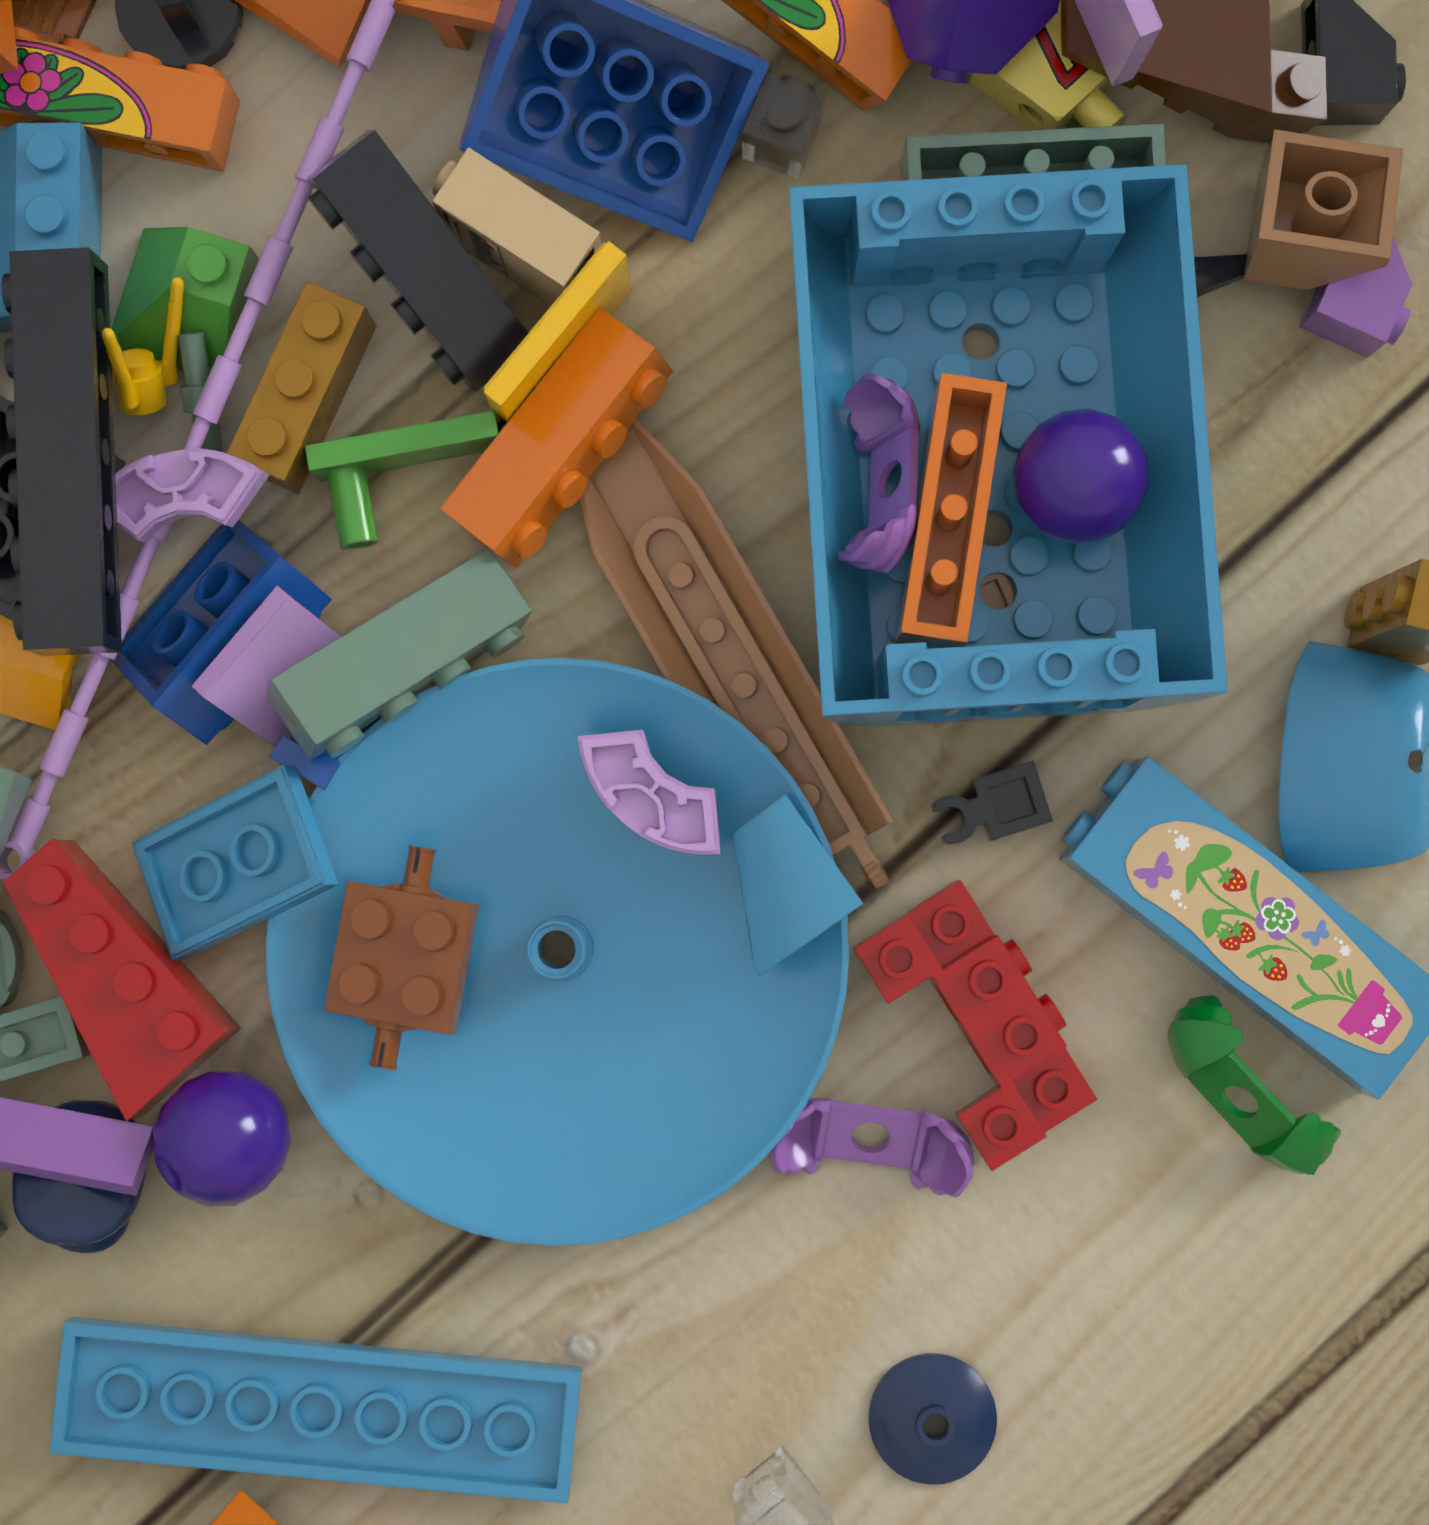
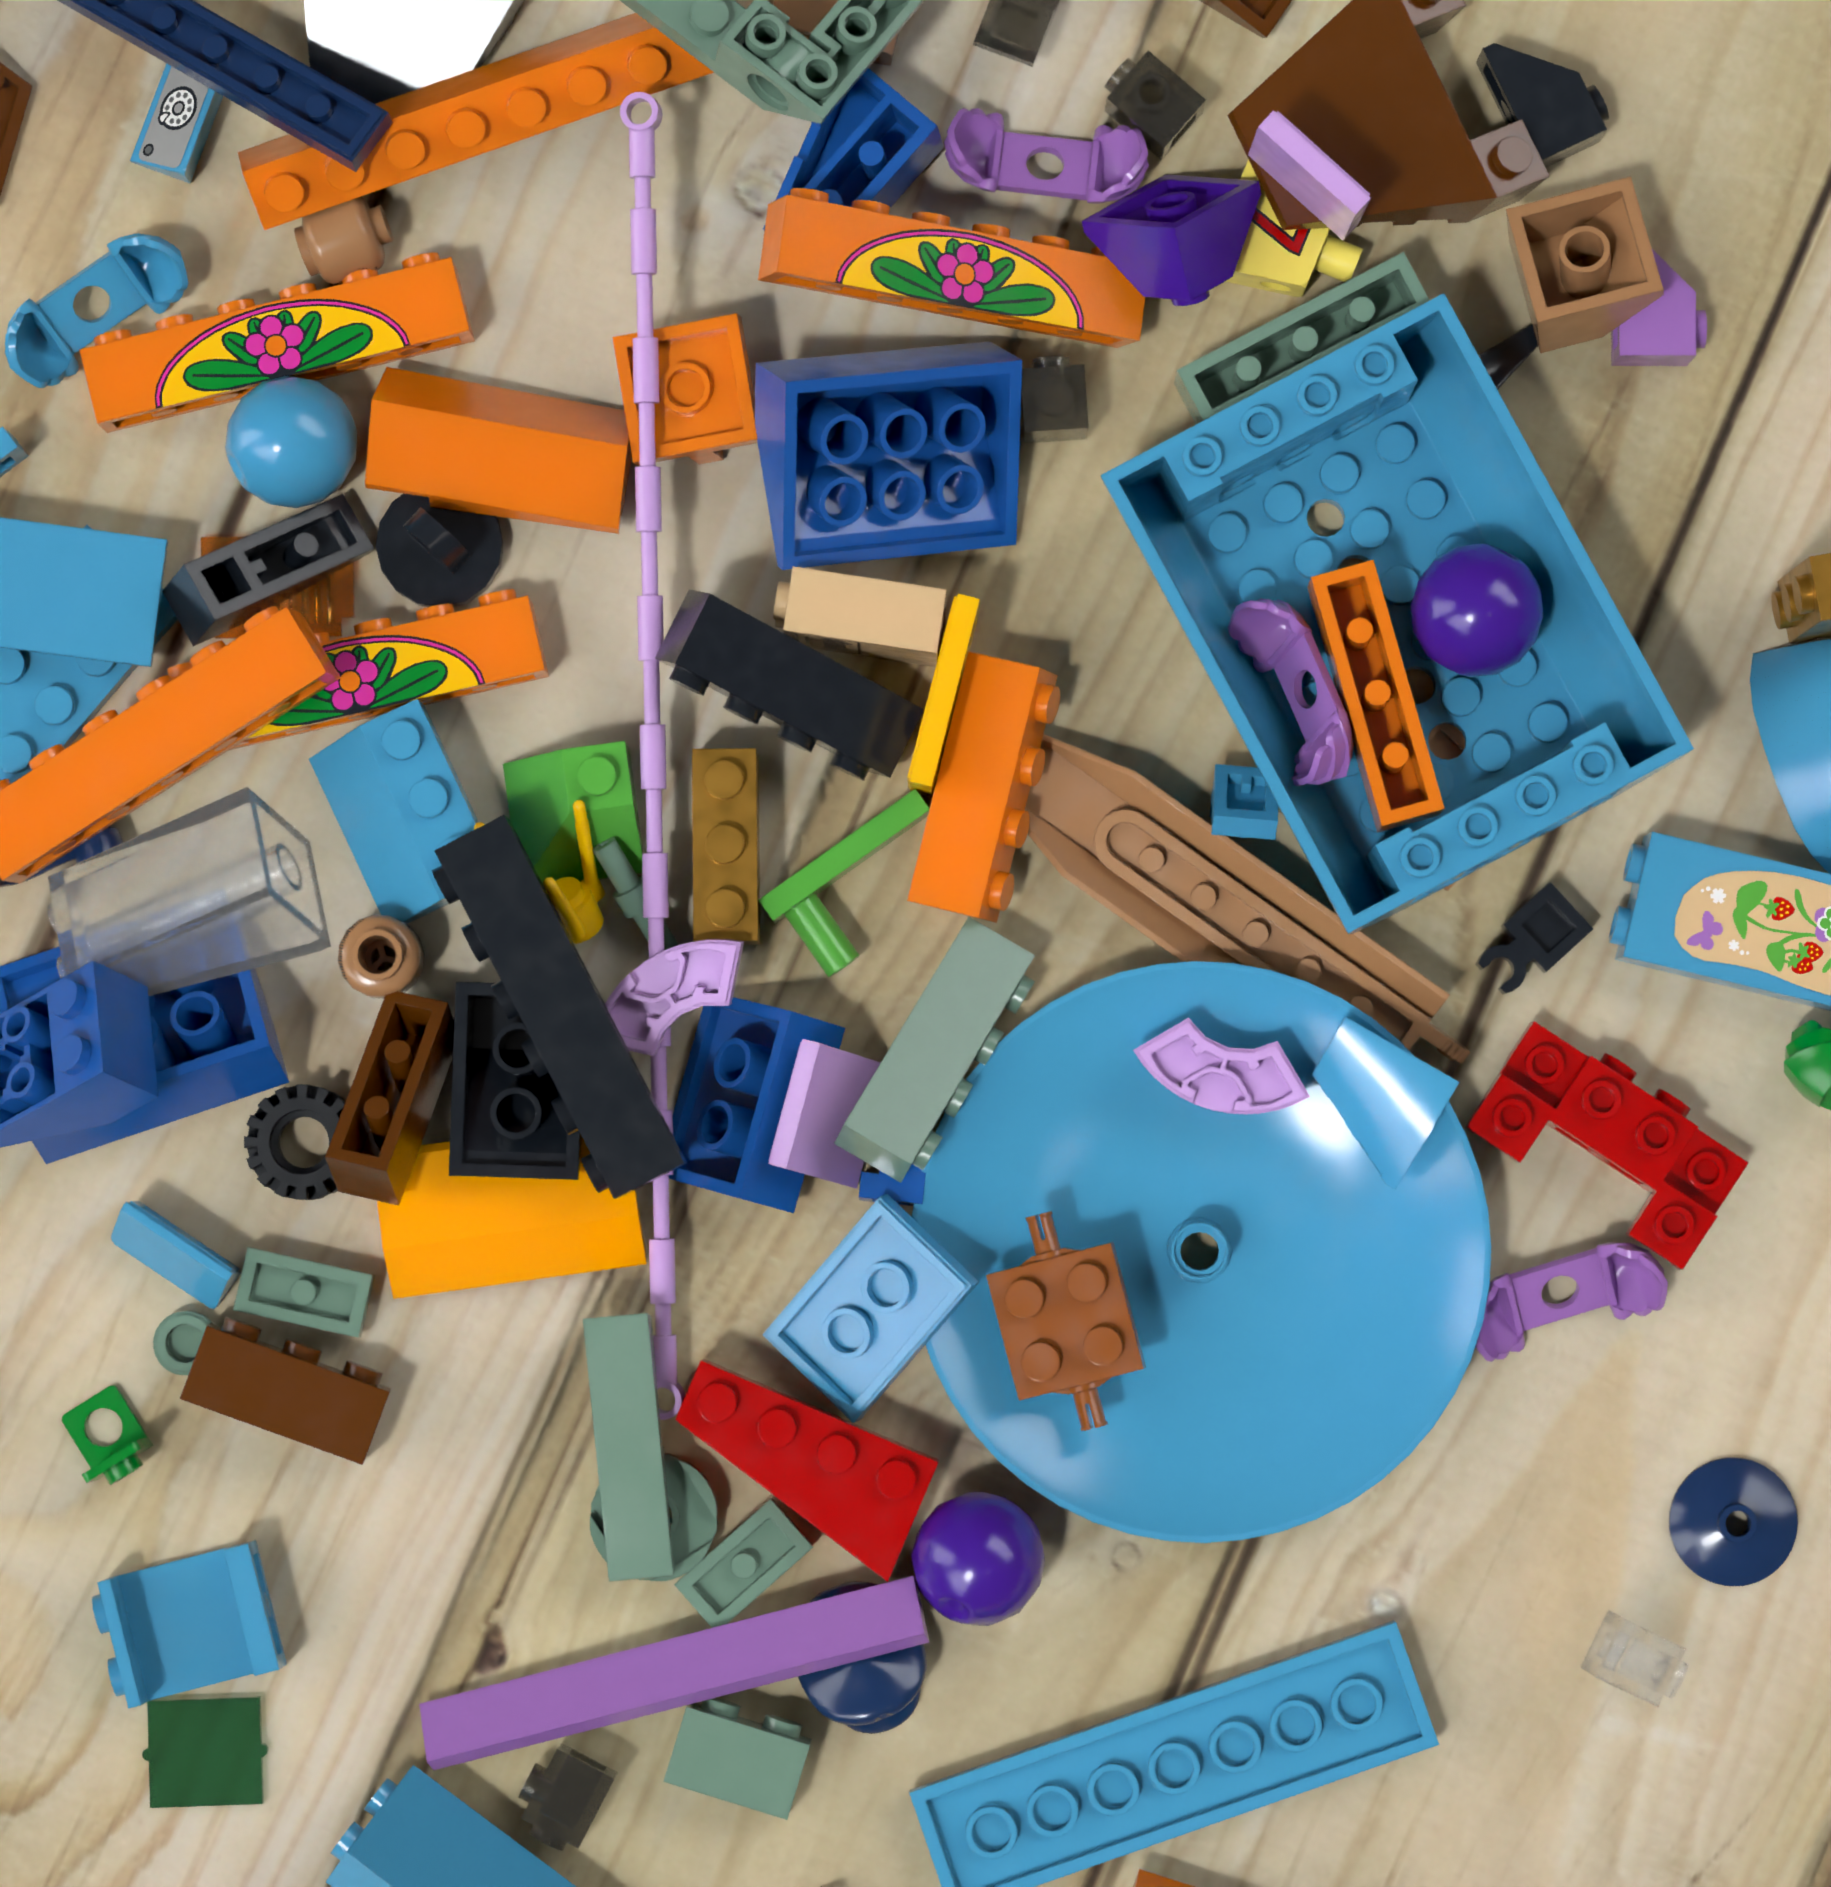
camera: 20 degrees left, 0 degrees up
(783, 560) = (1242, 804): none -> dark azure bracket

